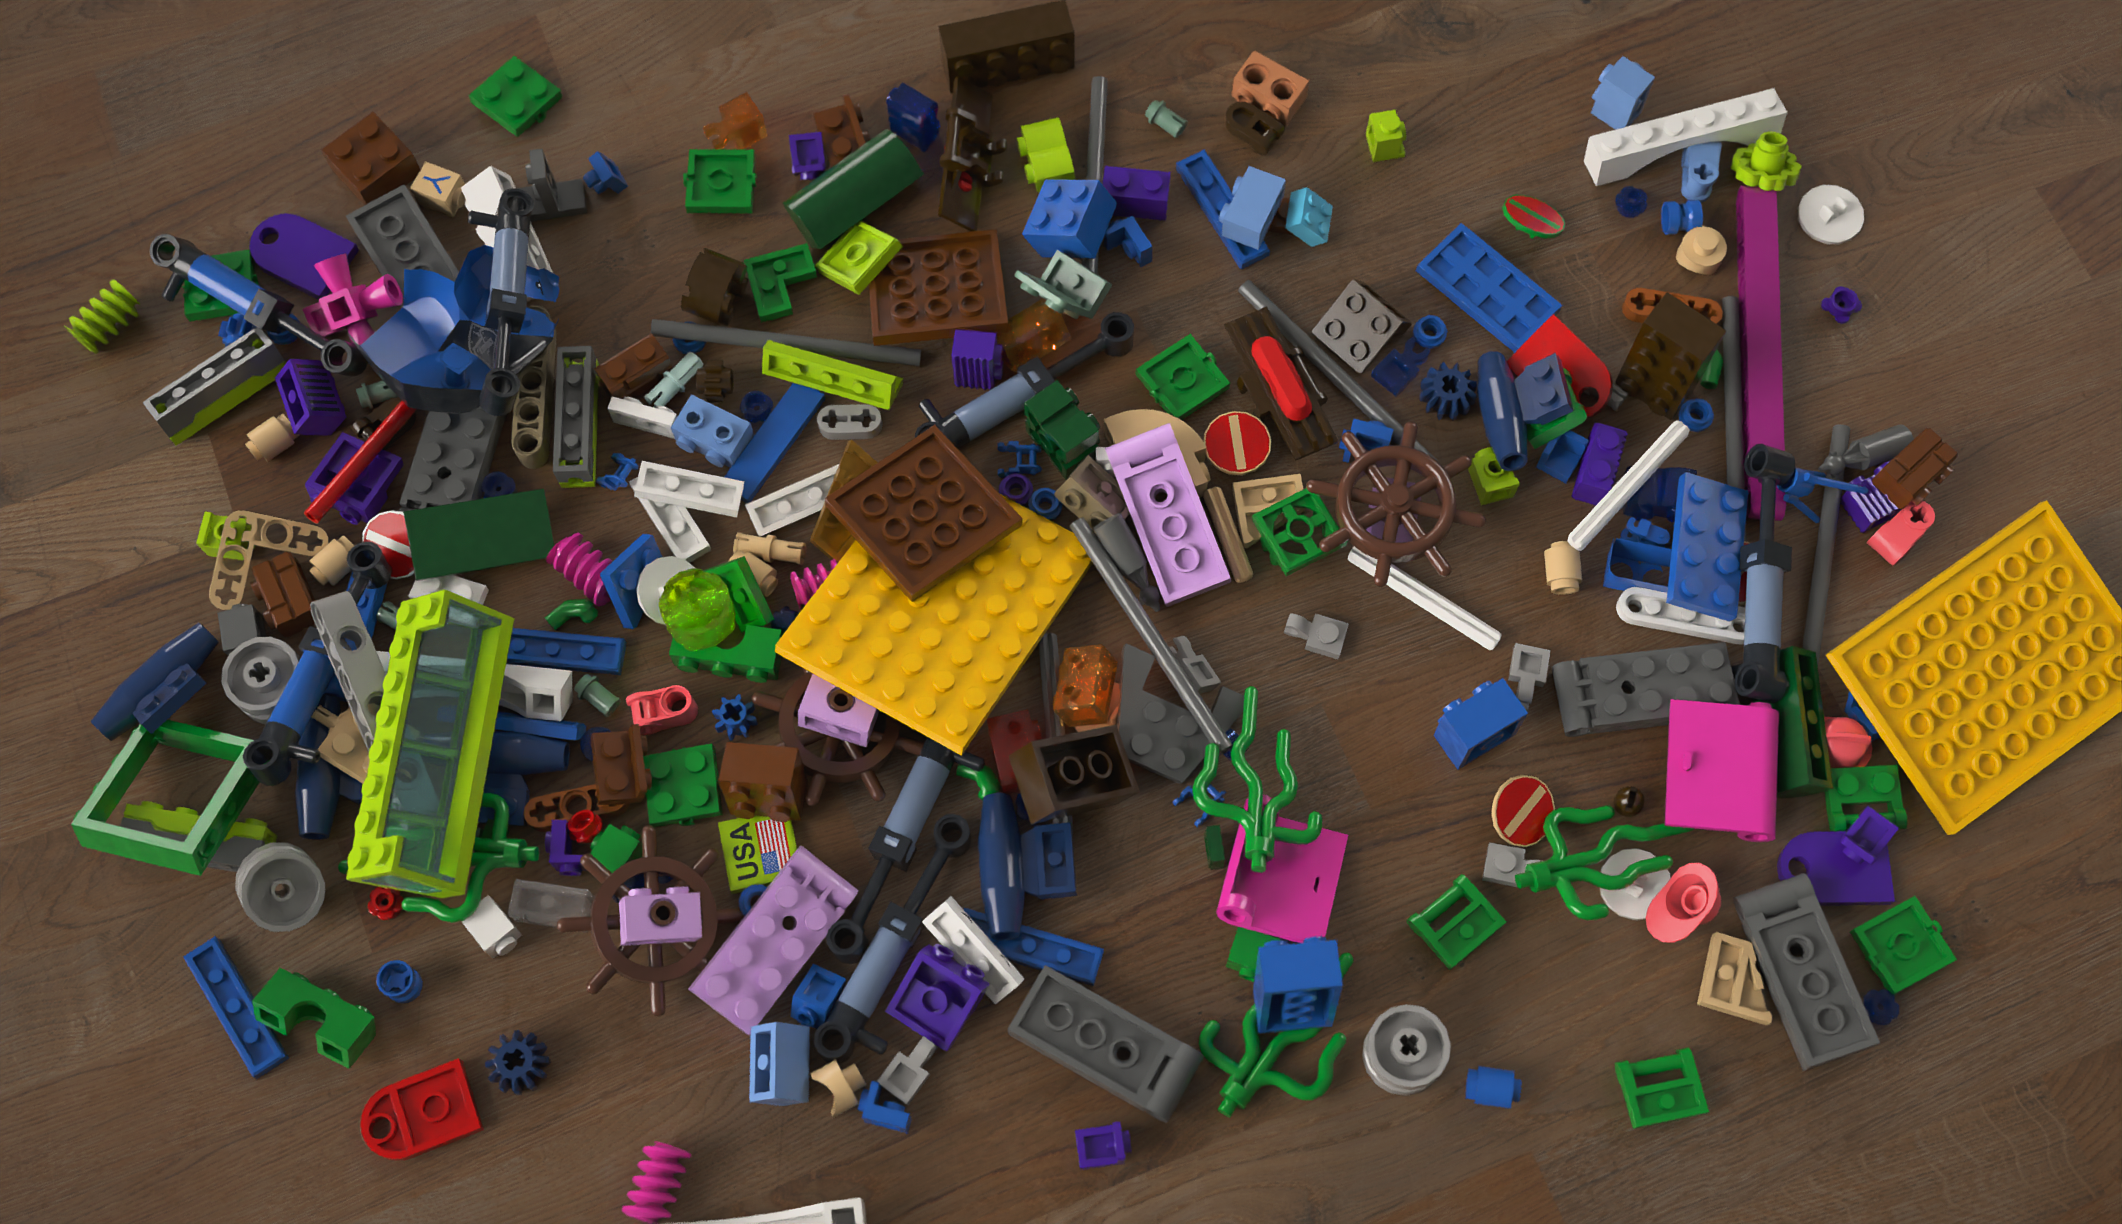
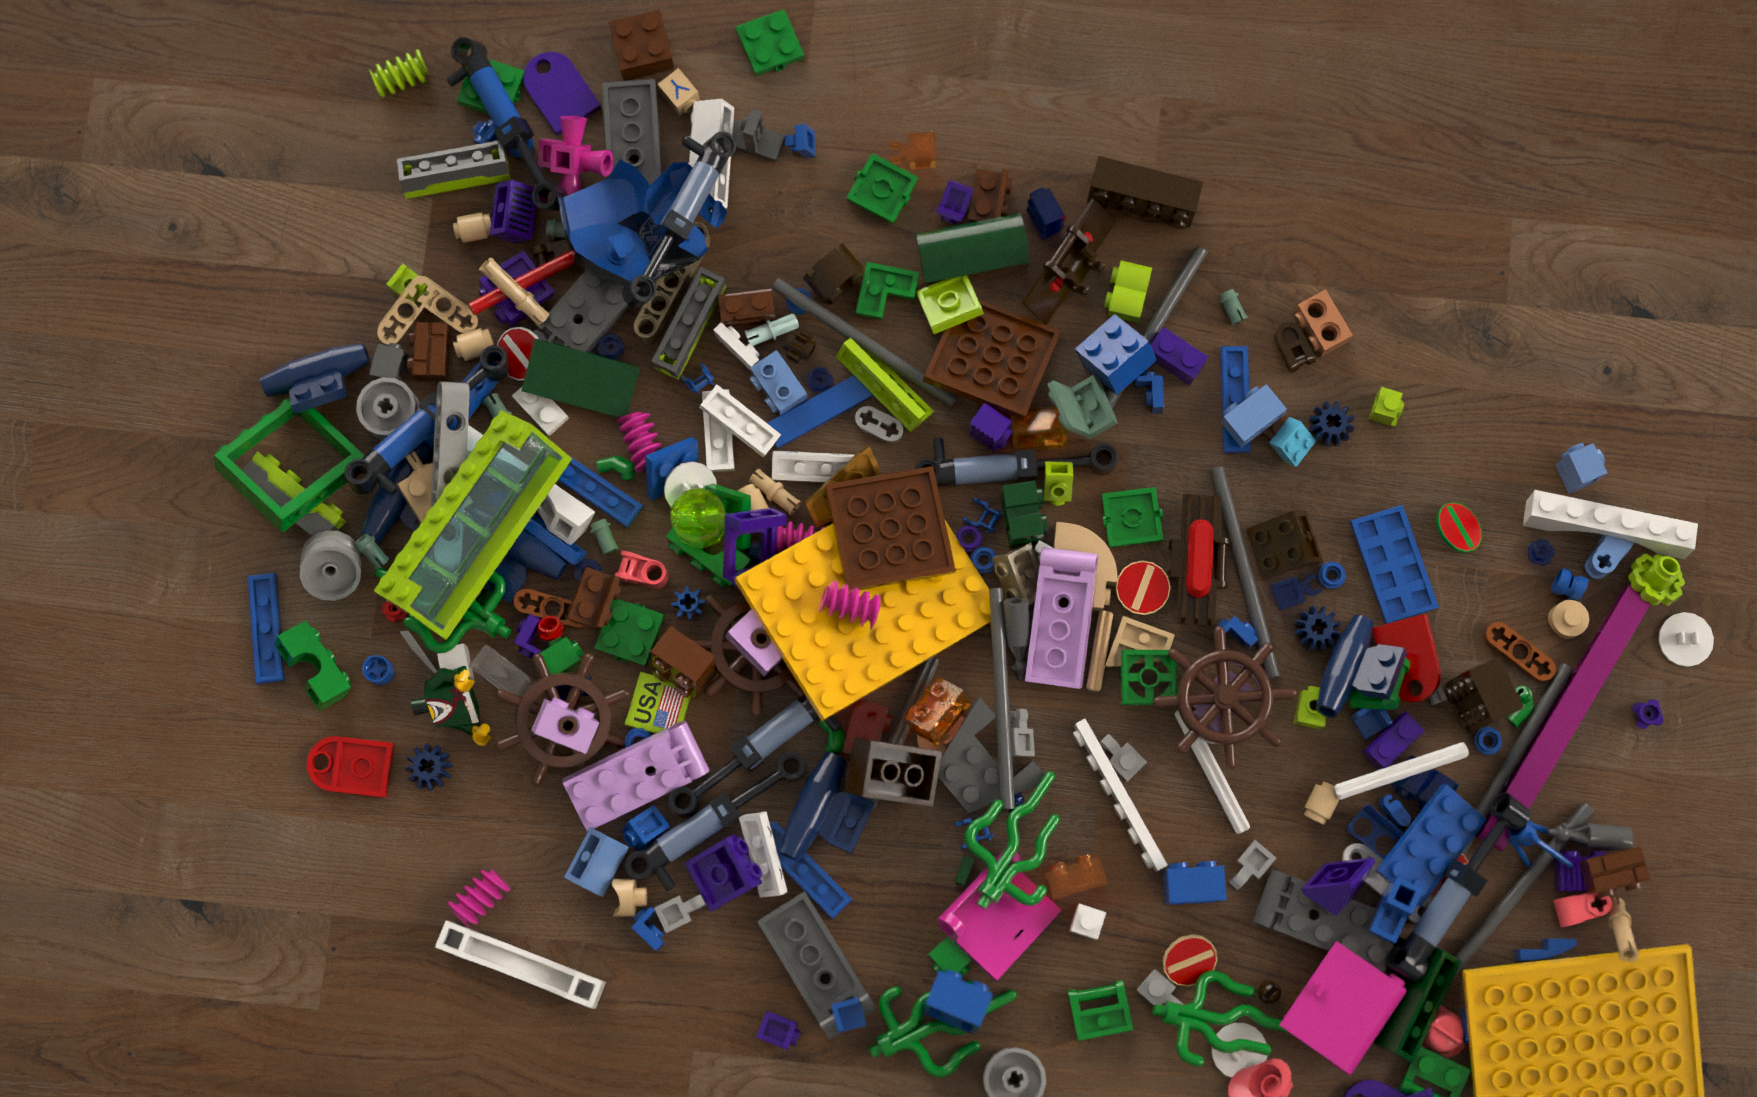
camera: 30 degrees right, 10 degrees up
(321, 844) = (371, 550): none -> sand green pin
(367, 478) = (514, 291): none -> tan pin
(439, 936) = (416, 648): none -> white sticker
(509, 968) = (452, 703): none -> torso
(759, 583) = (749, 522): none -> dark purple window
(924, 606) = (850, 603): none -> dark pink piece
(1077, 371) = (1058, 482): none -> lime brick
(1175, 1075) = (848, 1015): none -> blue panel
(1330, 668) = (1112, 785): none -> white plate
(1339, 180) = (1327, 414): none -> dark blue gear
(1344, 788) = (1076, 878): none -> clear orange brick
(1385, 829) = (1087, 922): none -> white brick
(1634, 637) = (1338, 883): none -> dark purple slope
(1710, 626) = (1394, 908): none -> blue brick
(1893, 593) = (1550, 948): none -> blue slope
(1954, 522) = (1620, 922): none -> tan pin

